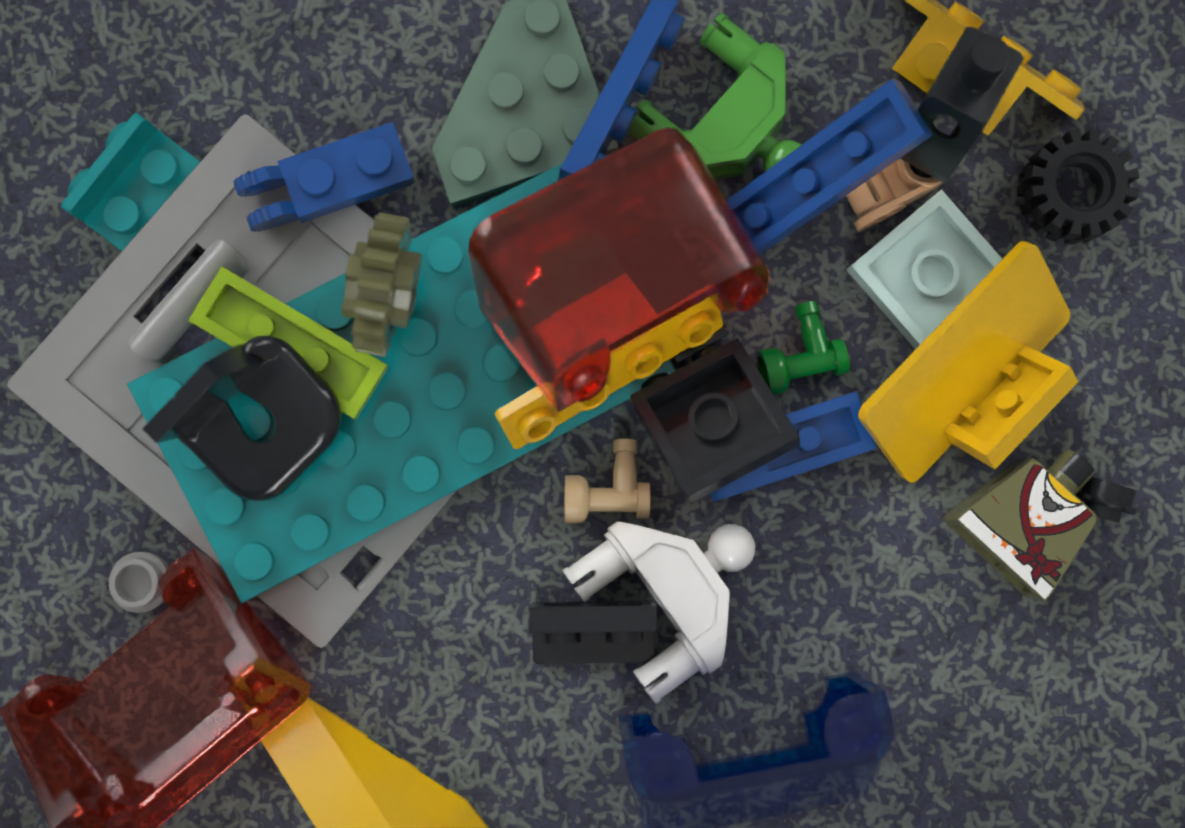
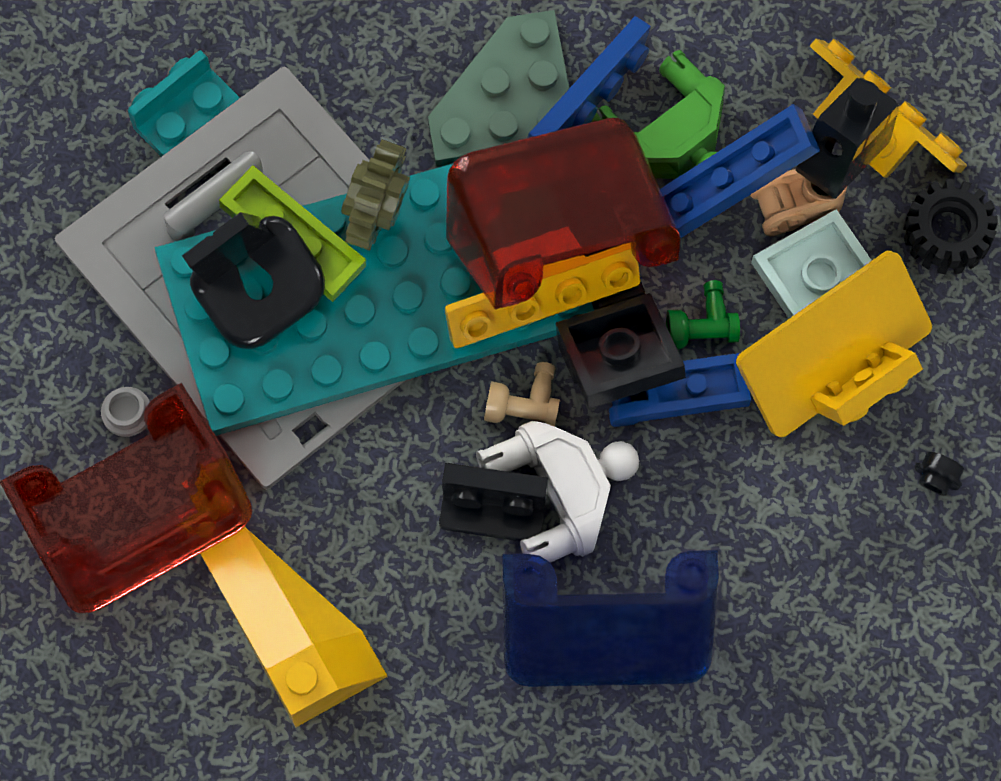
camera: 10 degrees right, 15 degrees down
(329, 178) = (342, 123): blue hinge -> none
(1028, 521) = (867, 476): torso -> none

